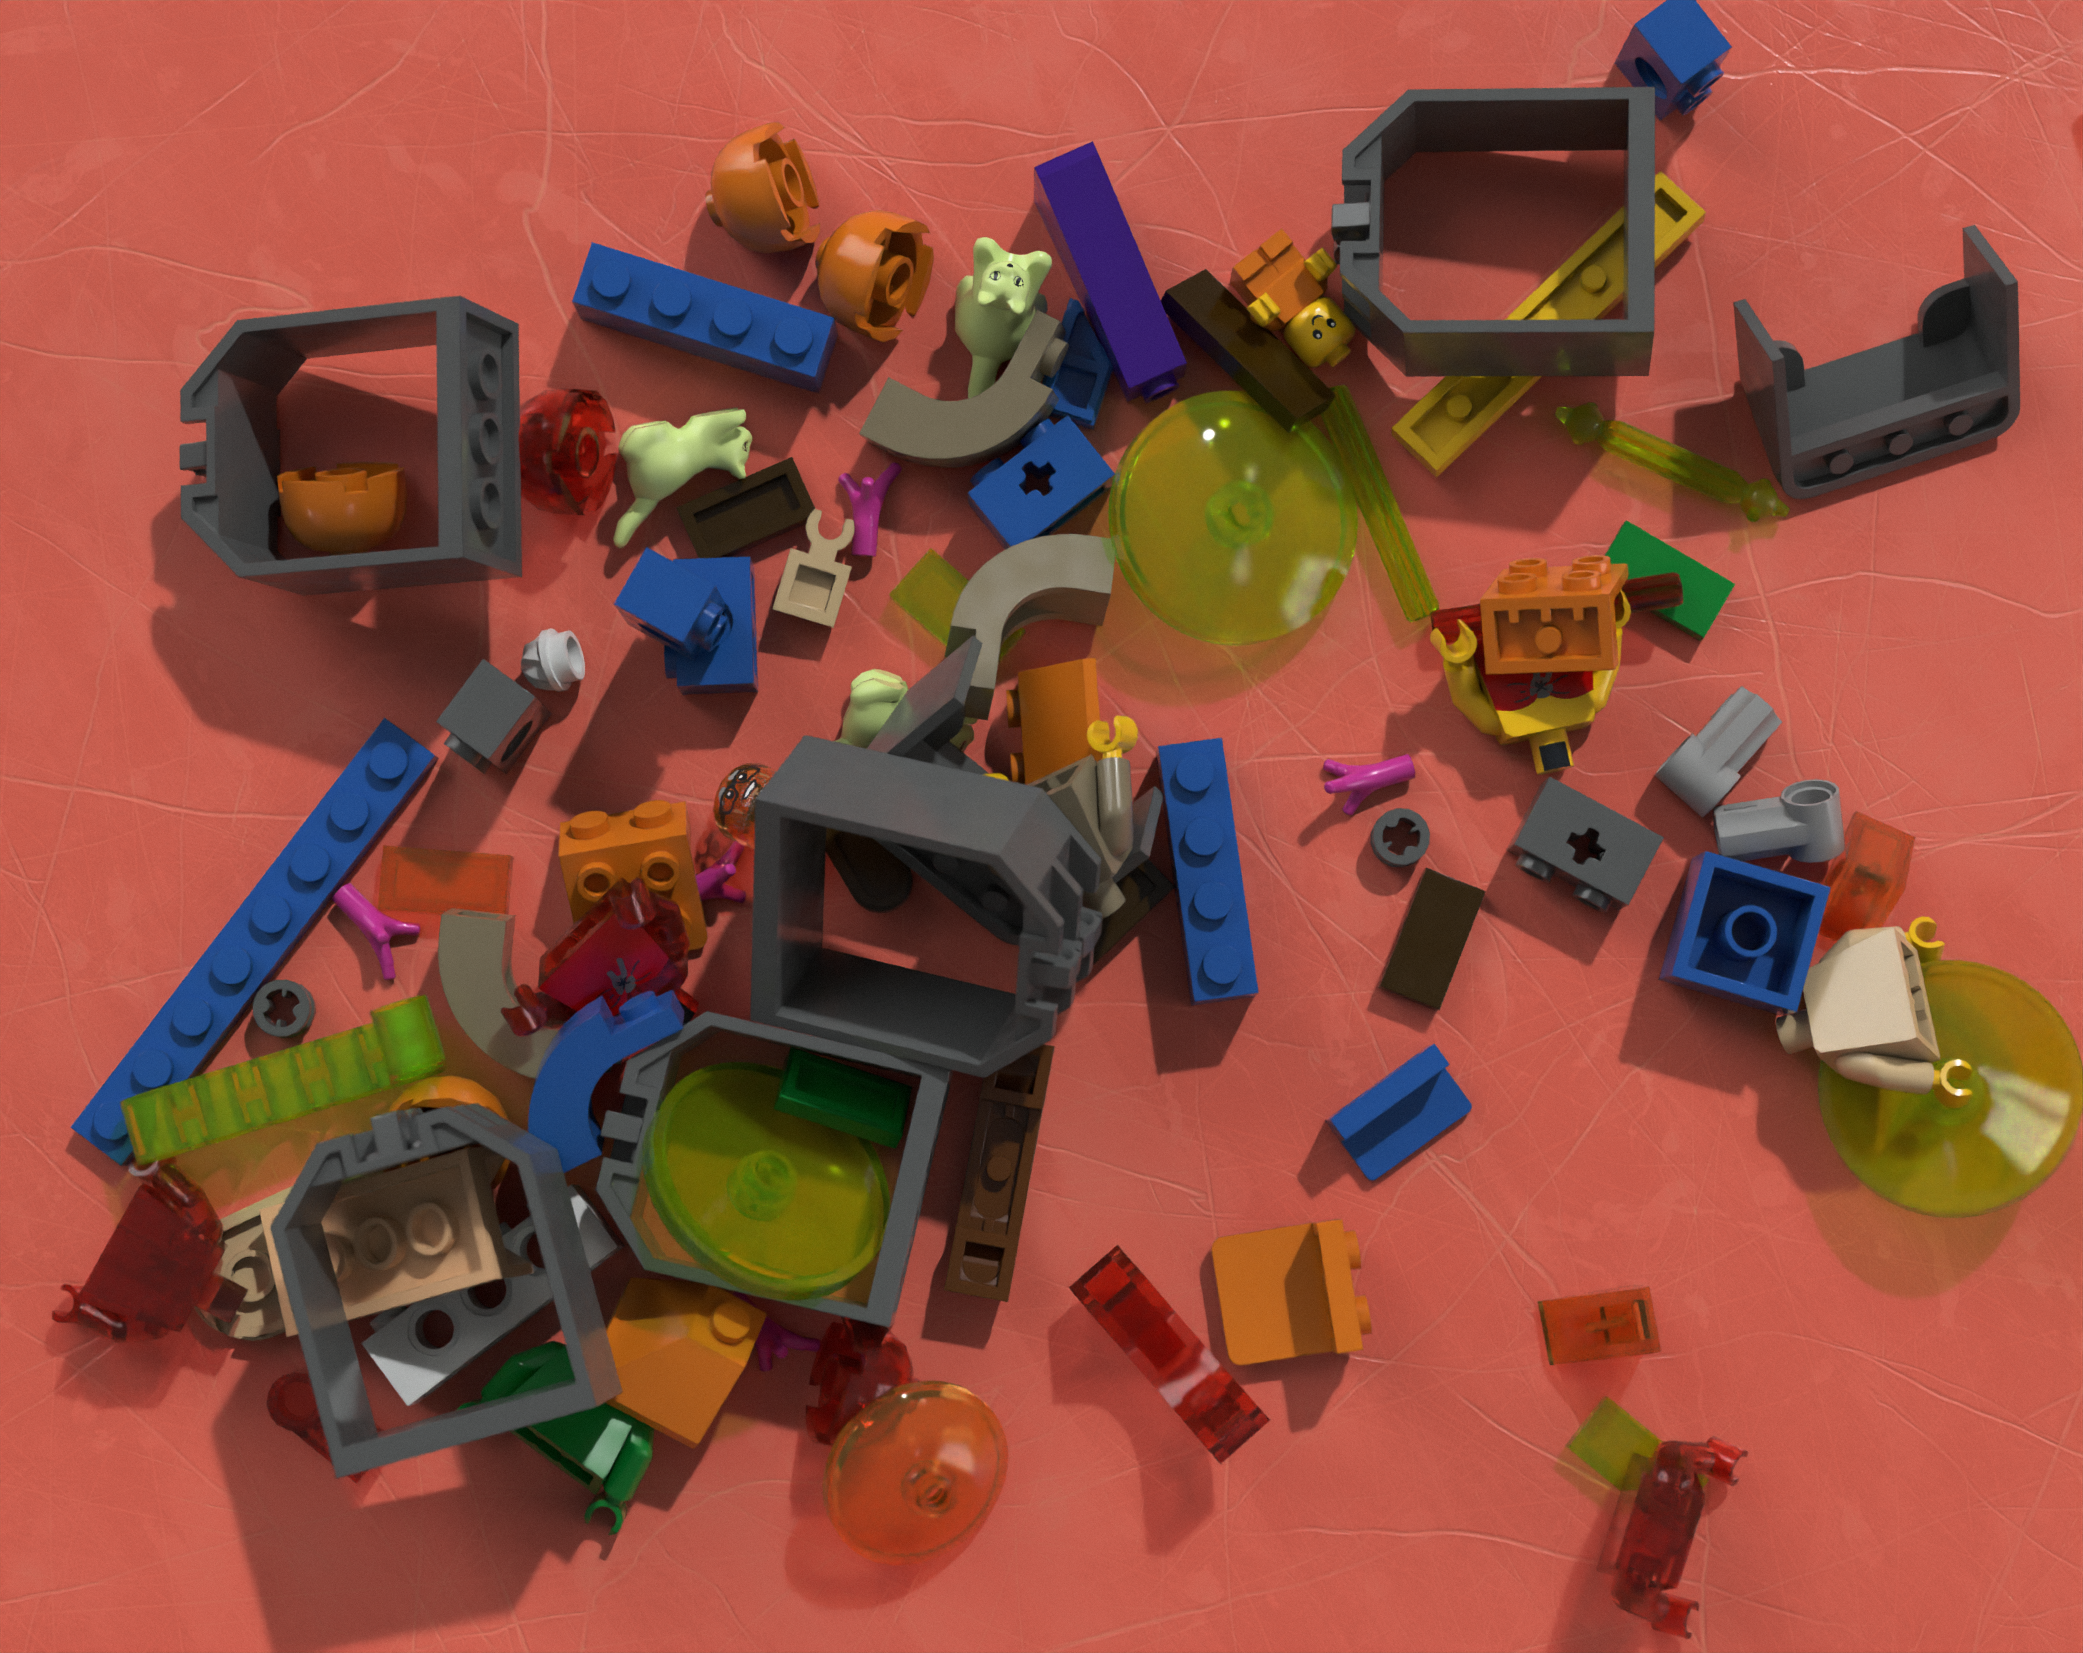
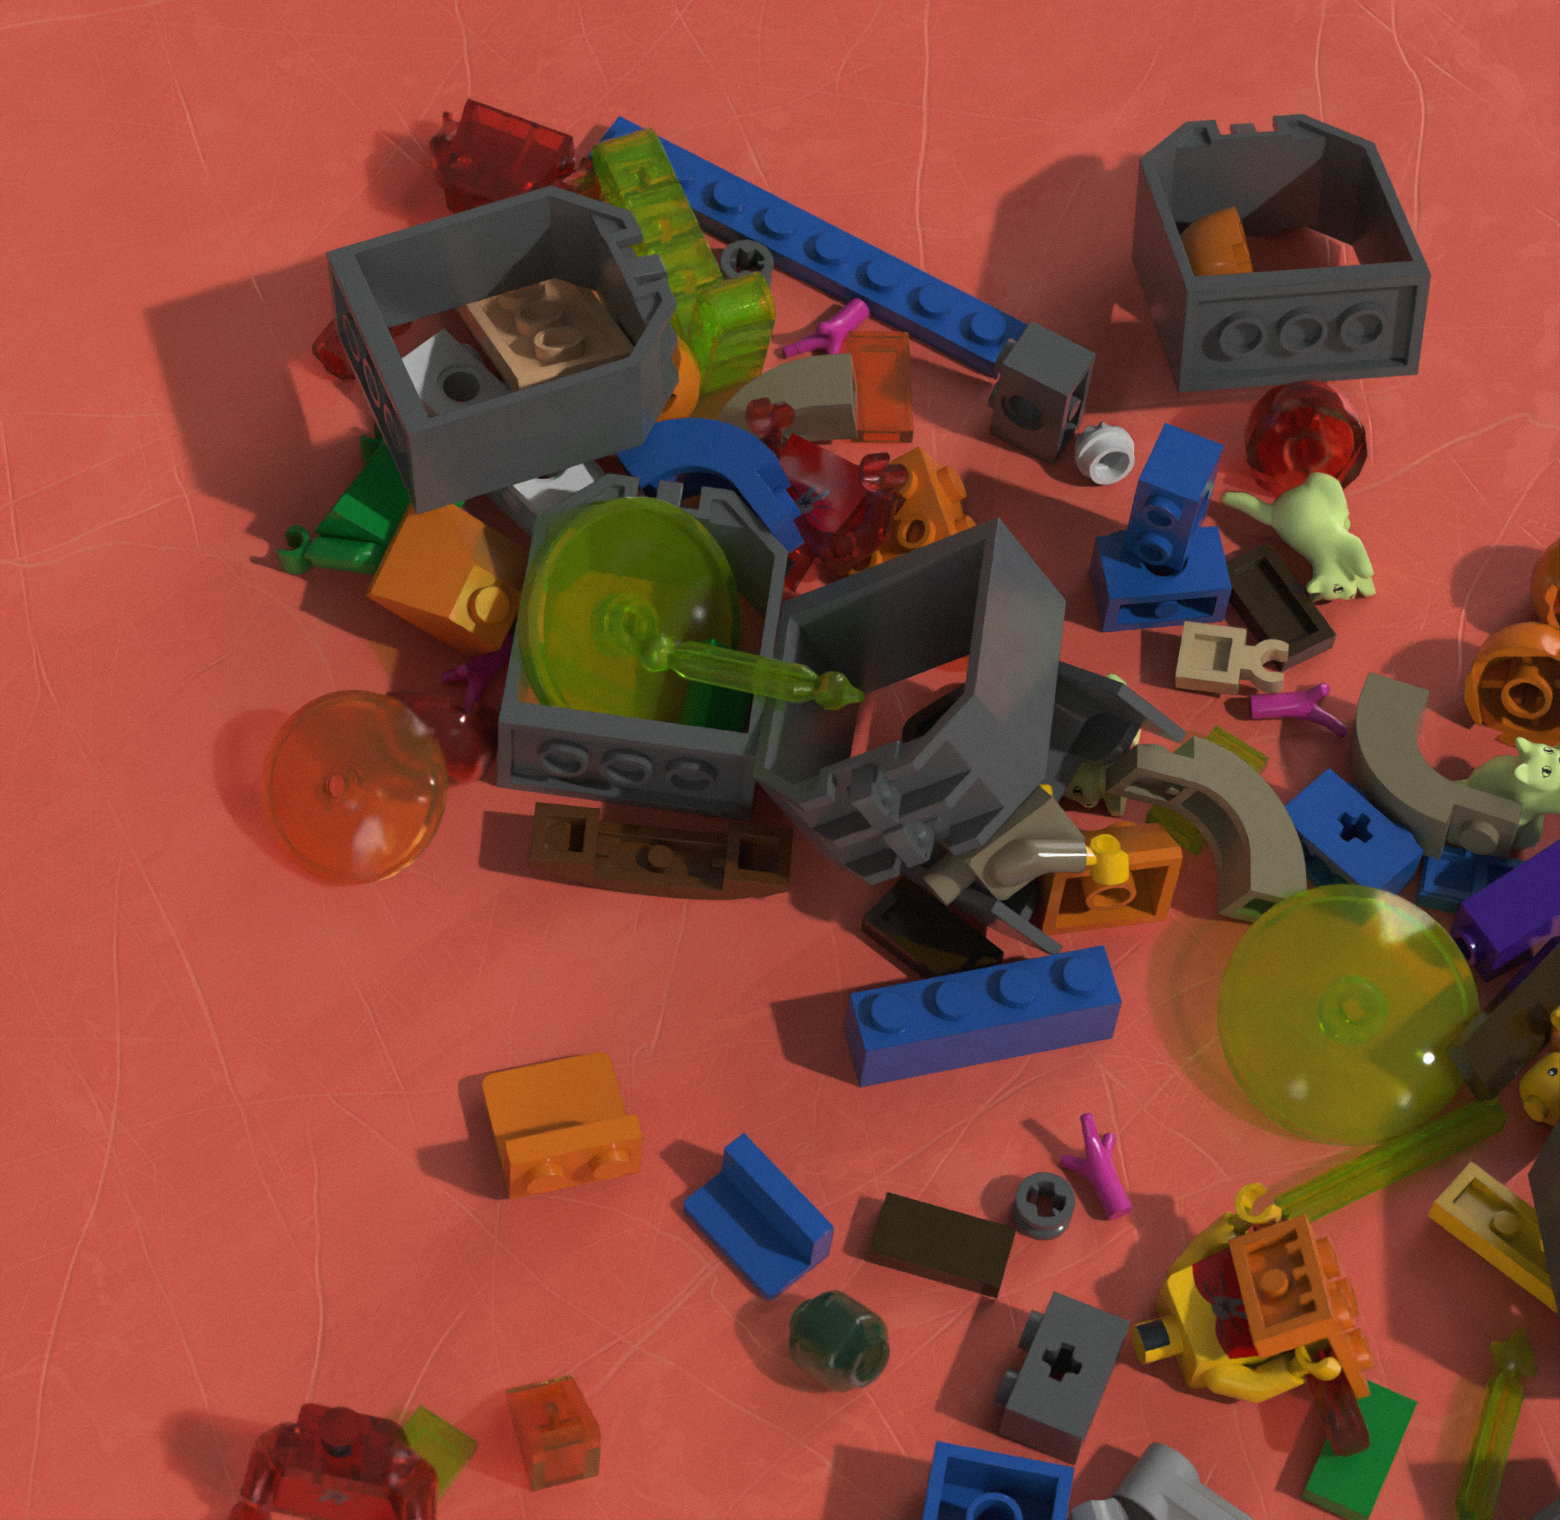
camera: 80 degrees right, 25 degrees down
(705, 317) = (1456, 550): blue brick -> none
(857, 1071) = (745, 672): none -> clear neon green wheel
(1169, 1354) = (496, 1007): clear red arch -> none
(1535, 1050) = (838, 1341): none -> head

